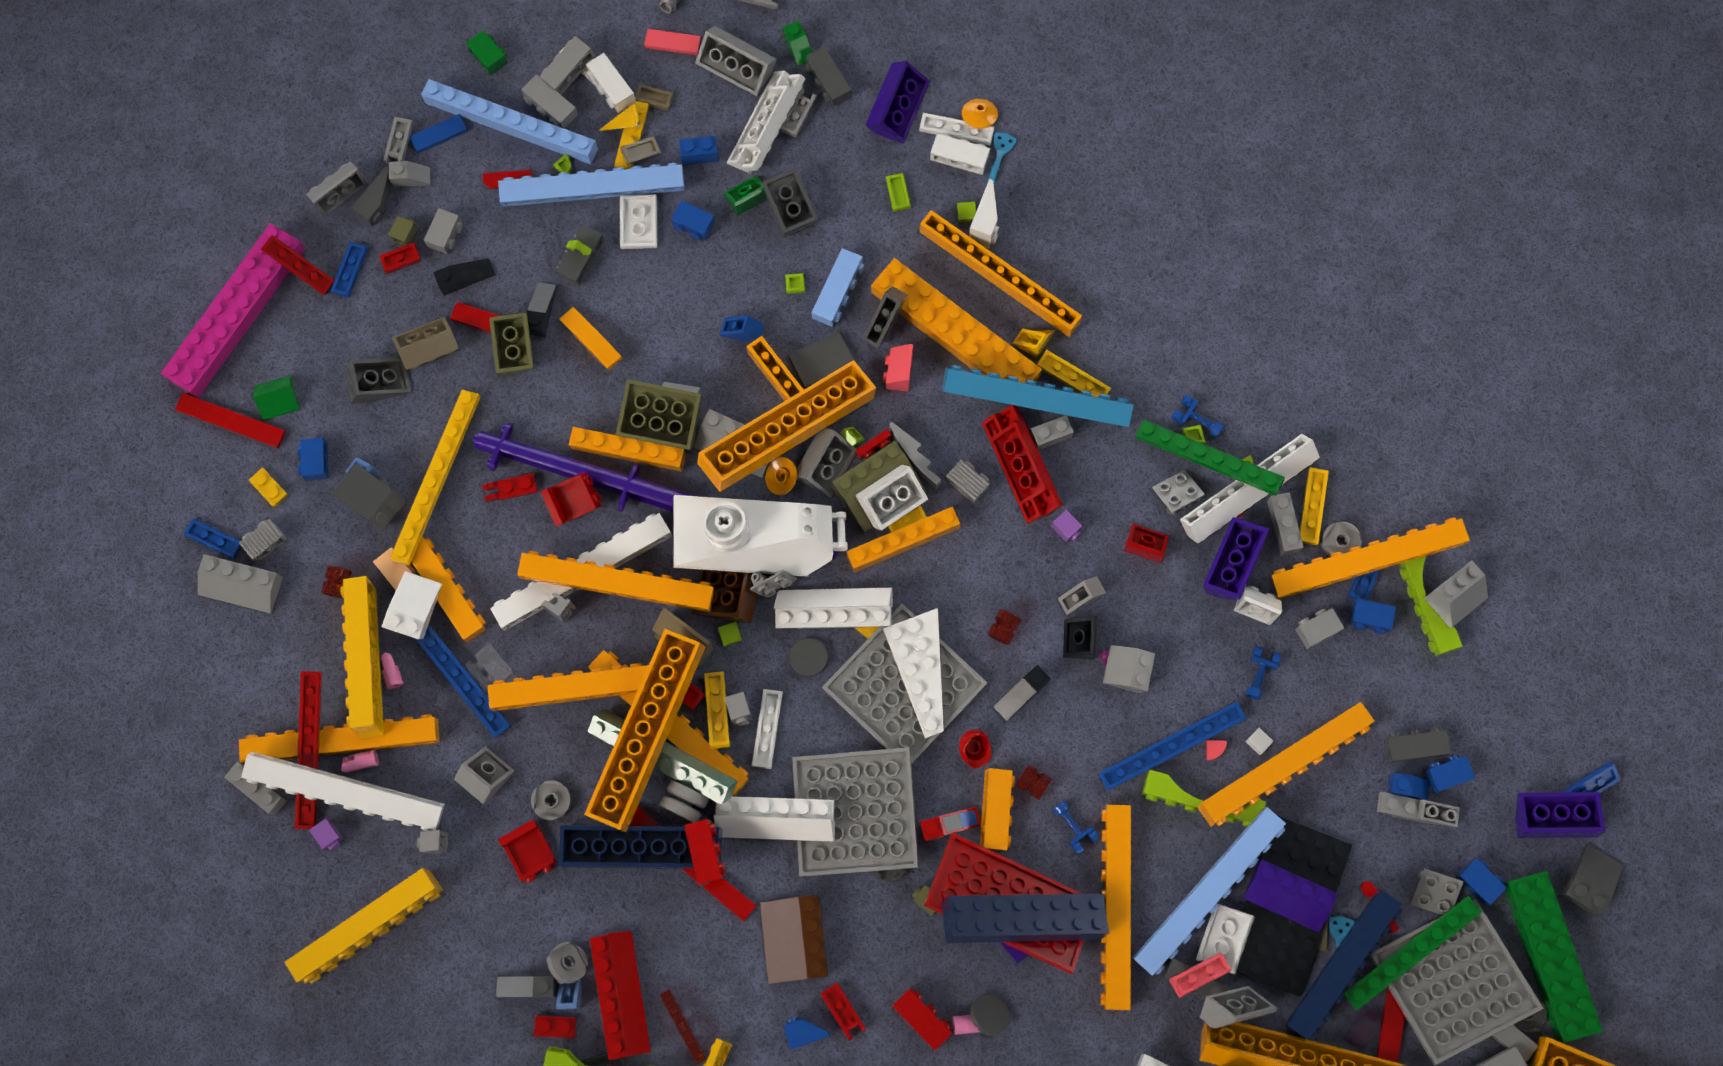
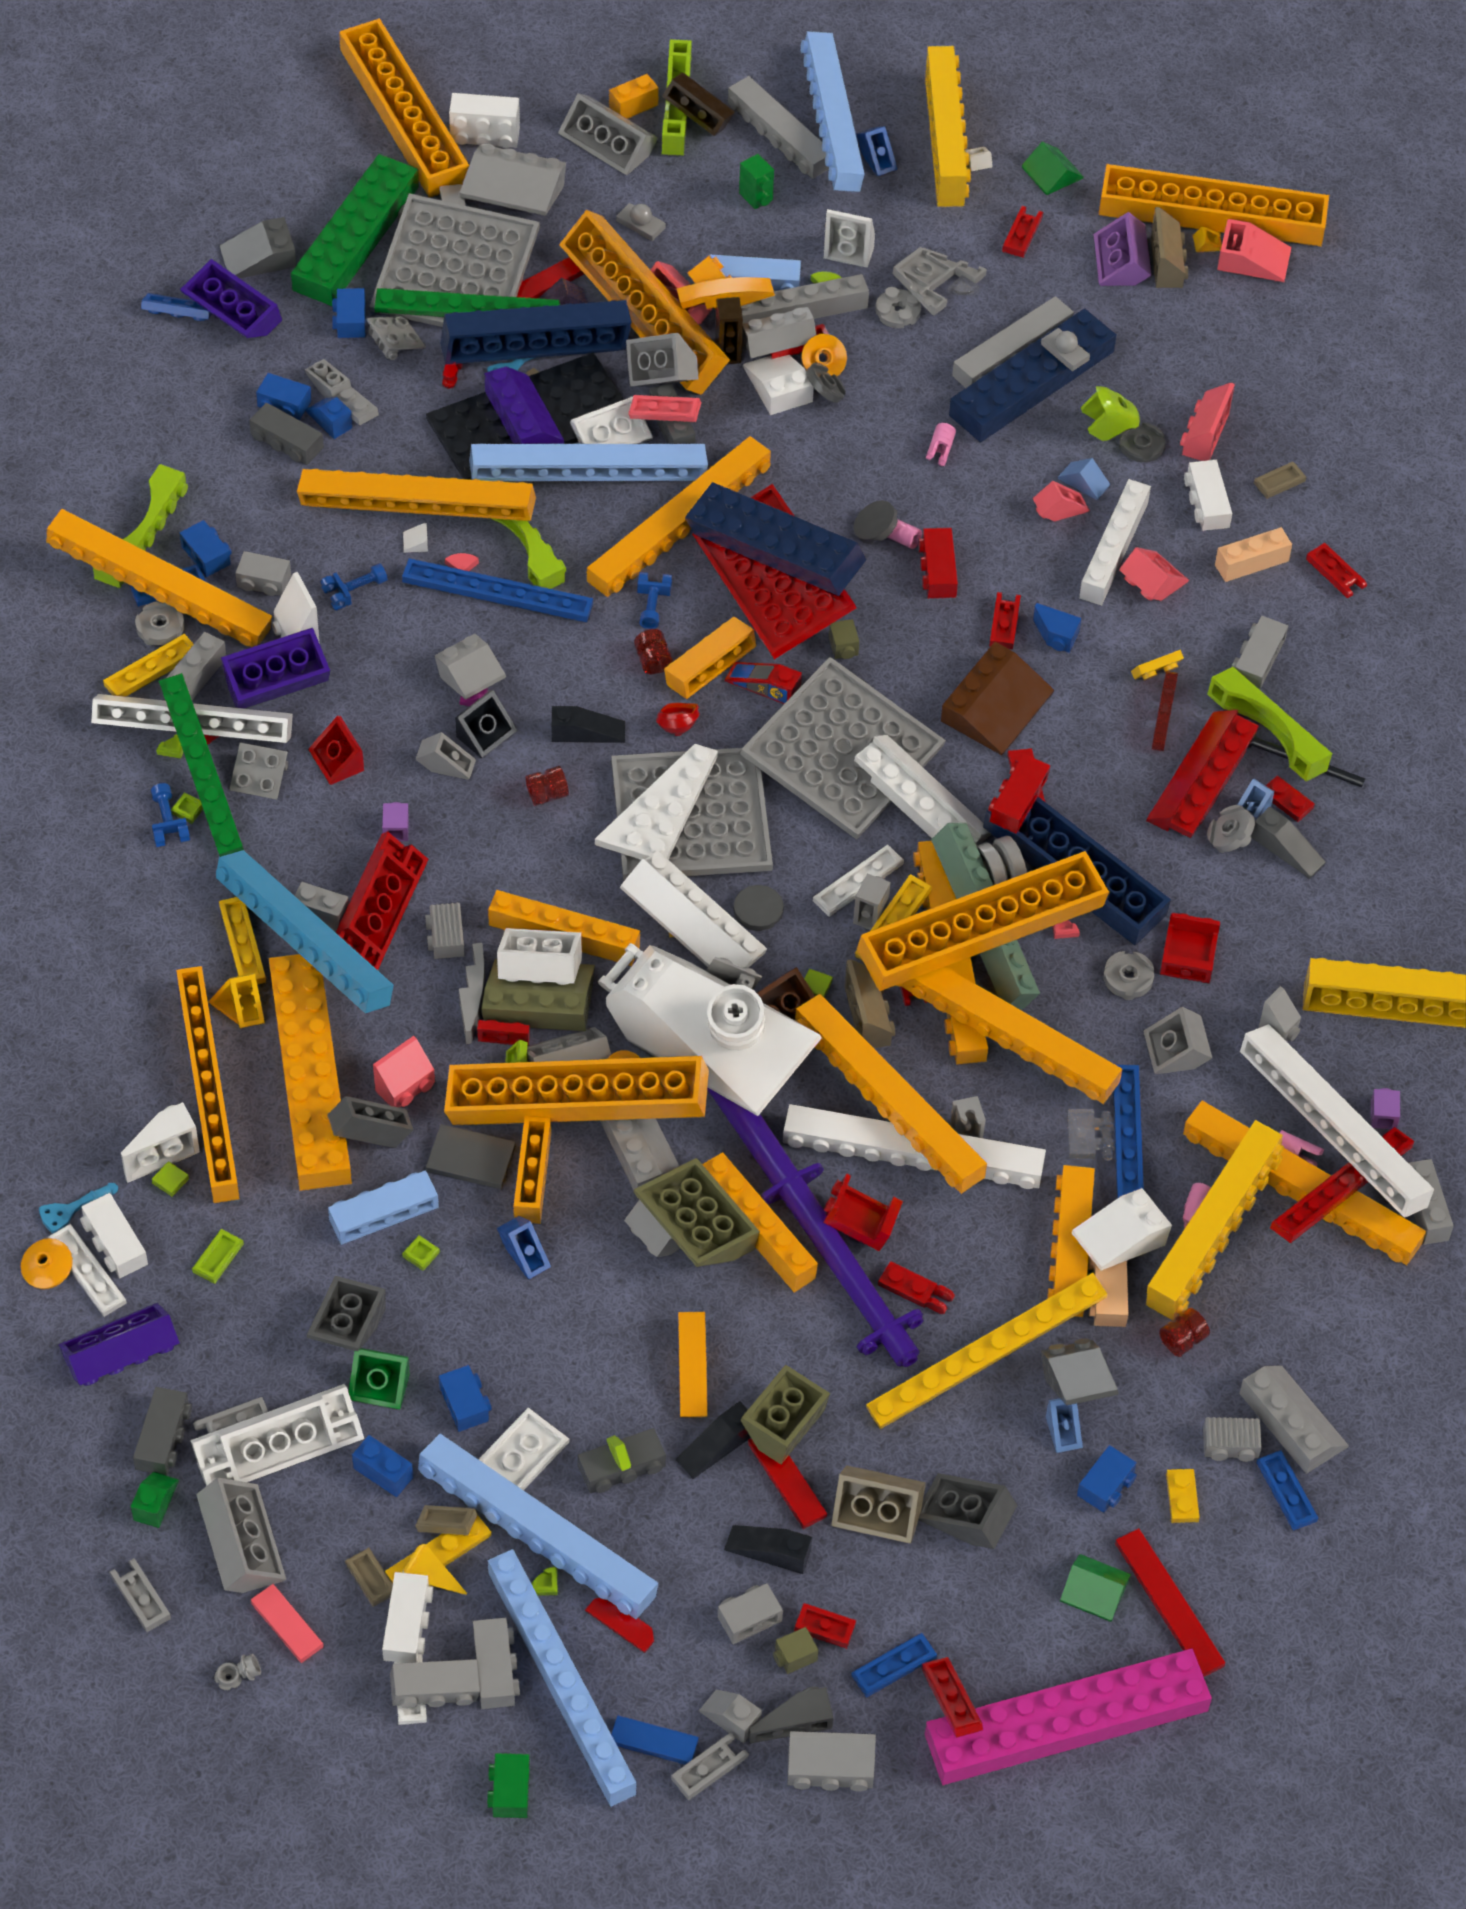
camera: 145 degrees left, 20 degrees down
(1459, 594) = (114, 504): light grey slope -> none

